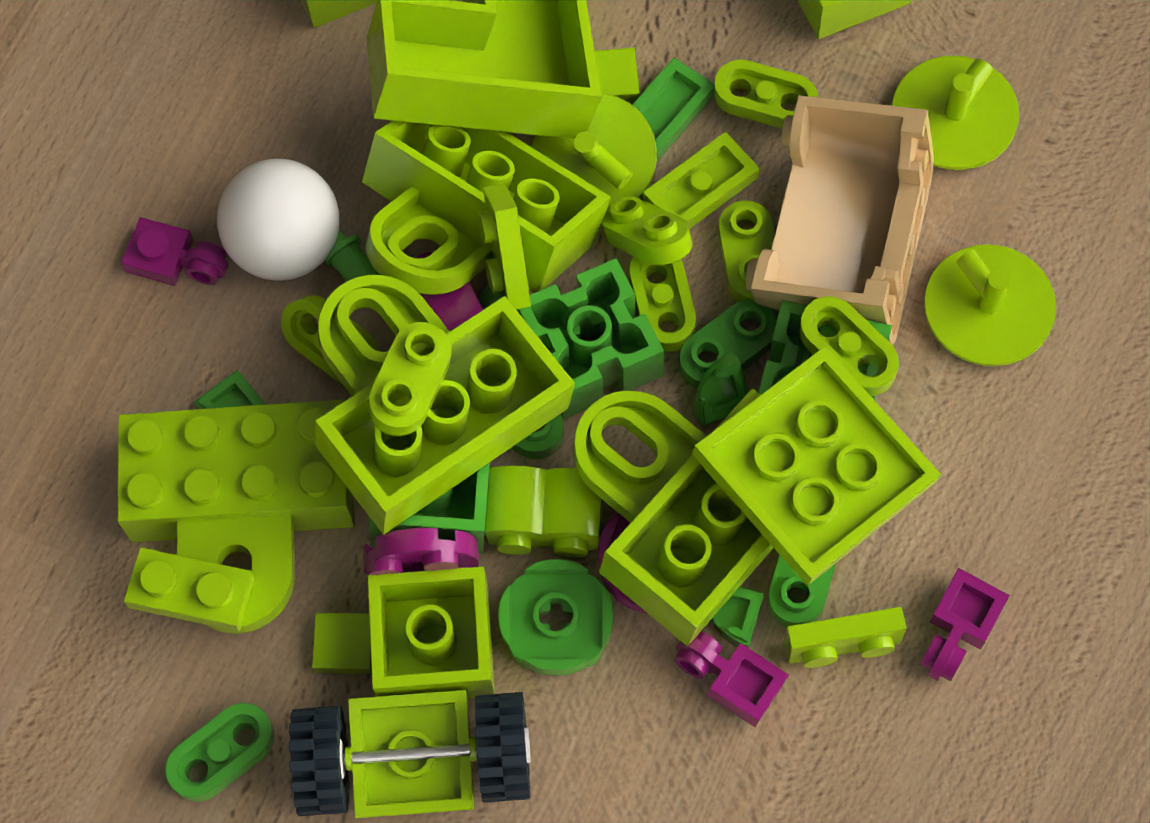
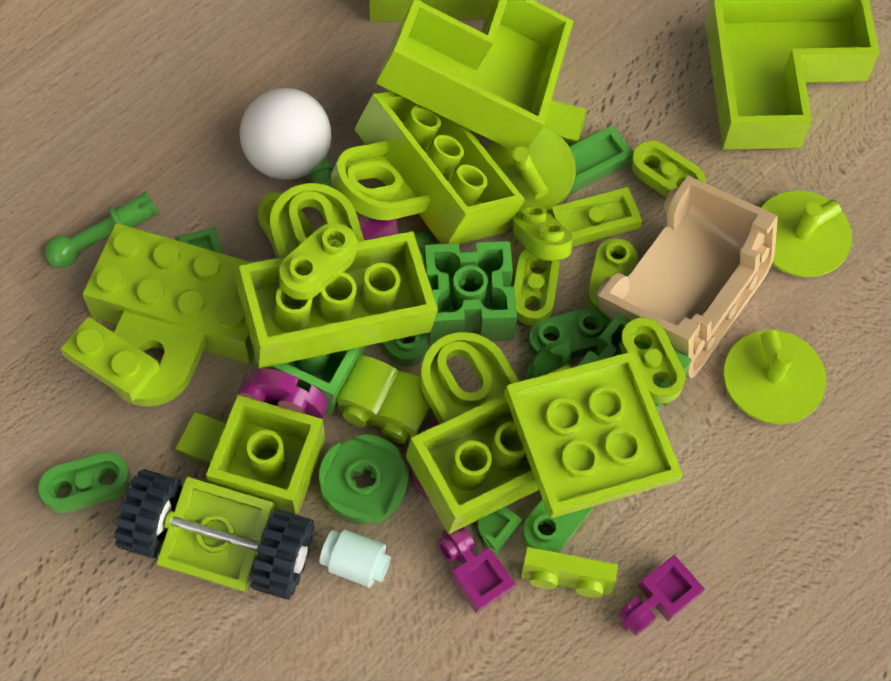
camera: 15 degrees right, 5 degrees down
(58, 471) = (63, 251): none -> bright green pin
(162, 250) = (201, 130): magenta plate -> none
(501, 228) = (431, 184): lime plate -> none
(587, 716) = (355, 557): none -> light aqua brick

